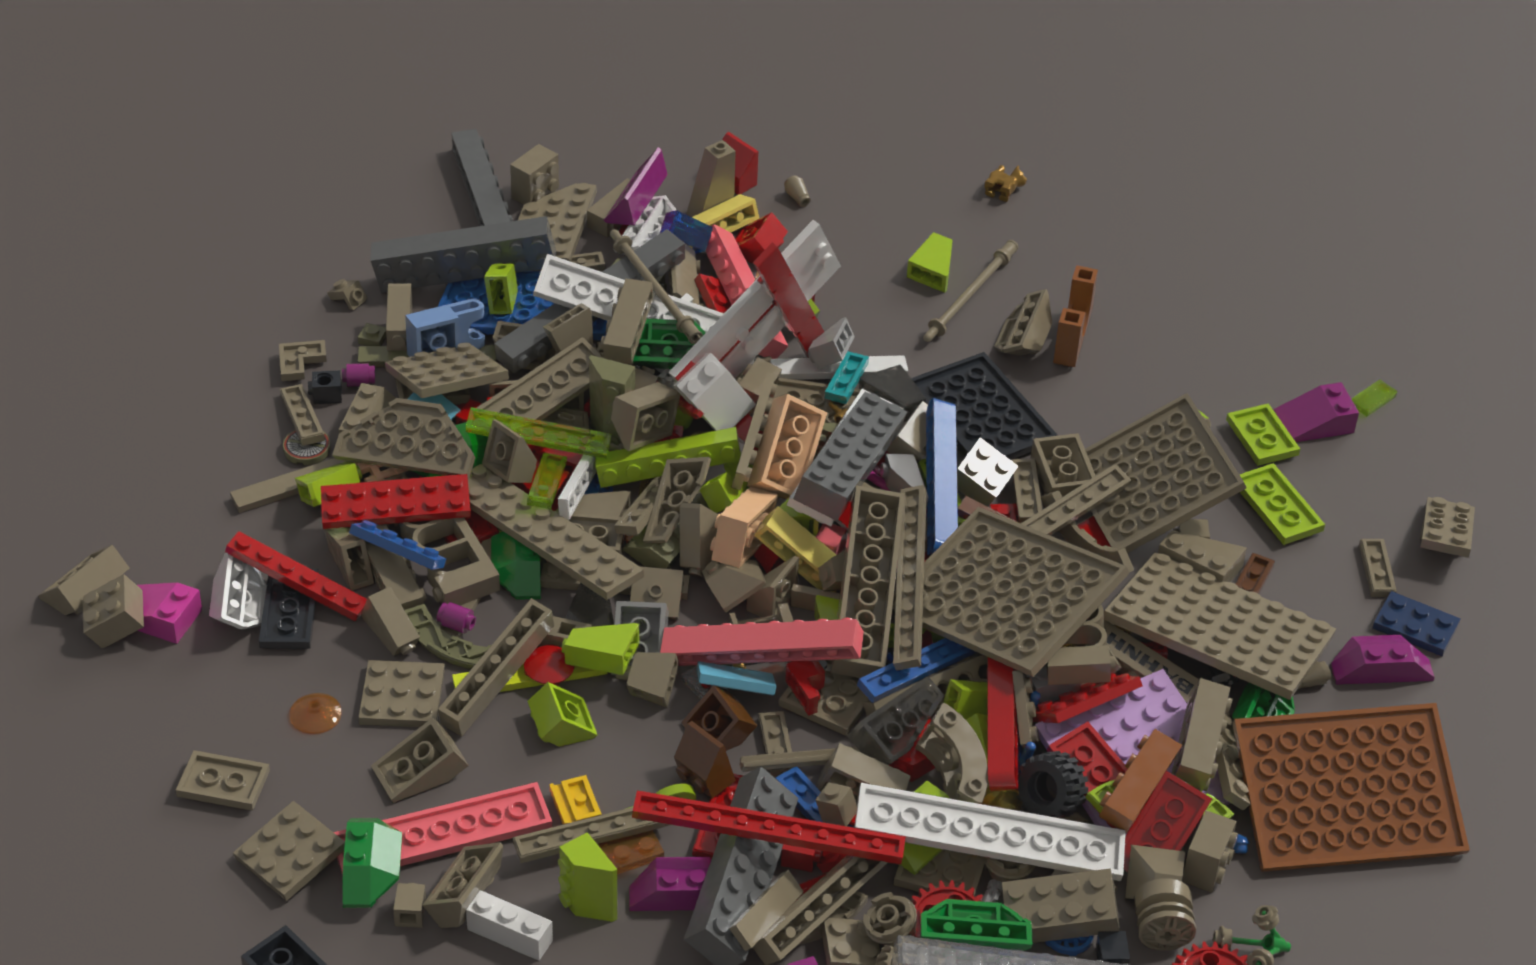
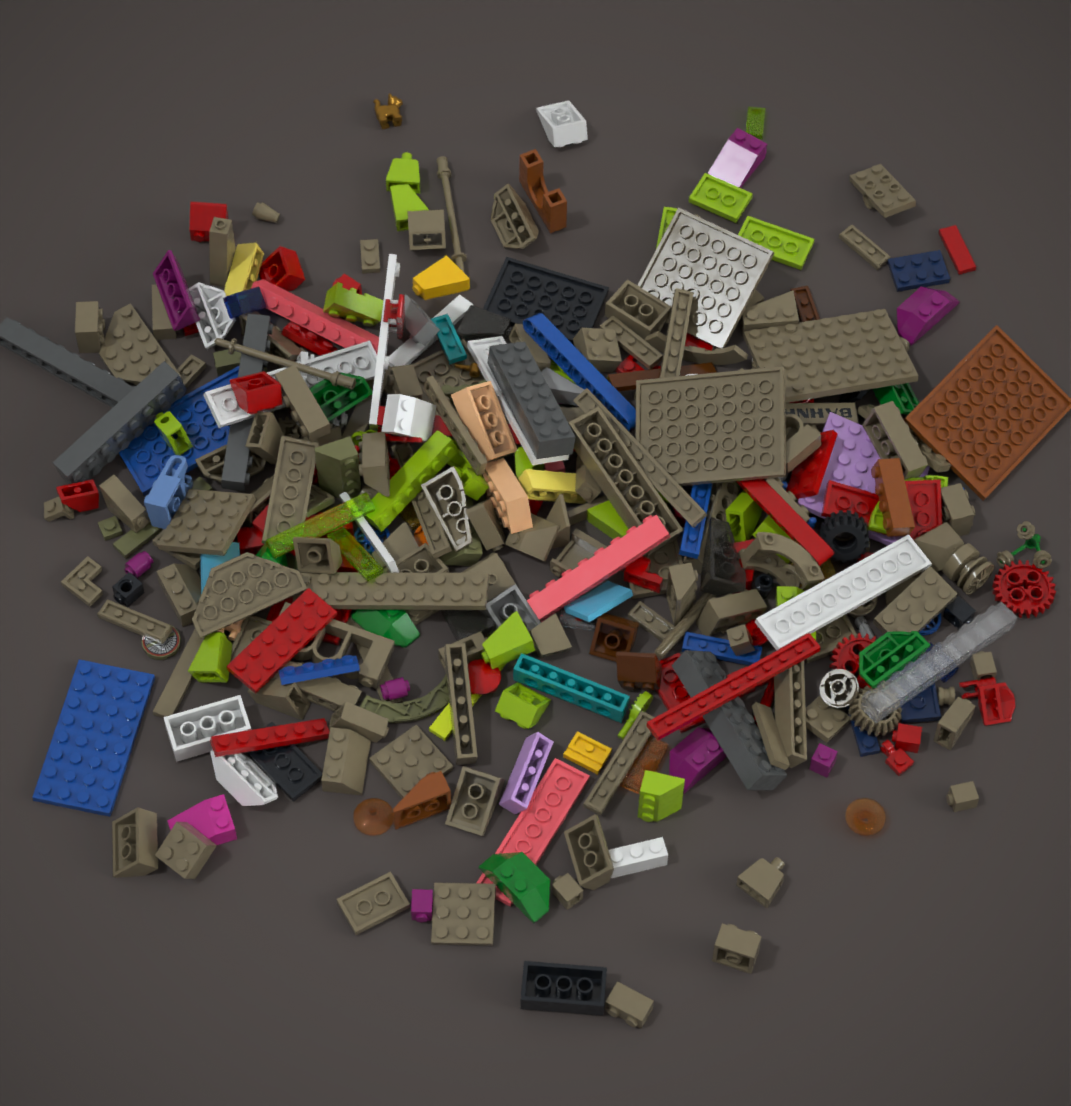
camera: 40 degrees left, 15 degrees up
(158, 480) = (94, 738): none -> blue plate
(260, 811) = (422, 905): none -> magenta brick
(270, 527) = (192, 729): none -> white brick
(341, 646) = (345, 762): none -> dark tan slope
(364, 722) = (424, 800): none -> dark orange slope
(369, 289) = (80, 495): none -> red slope
(492, 772) = (526, 773): none -> lavender brick
(594, 286) = (257, 392): none -> red slope
(622, 731) = (571, 687): none -> teal brick
(823, 717) = (681, 590): none -> dark tan slope
(856, 279) = (370, 256): none -> dark tan plate
(897, 332) = (440, 280): none -> yellow slope
(920, 774) = (764, 584): none -> black cone
(927, 283) = (426, 229): none -> dark tan slope
(964, 232) = (404, 171): none -> lime torso
(1164, 285) = (562, 124): none -> white slope
(1482, 631) = (957, 249): none -> red tile

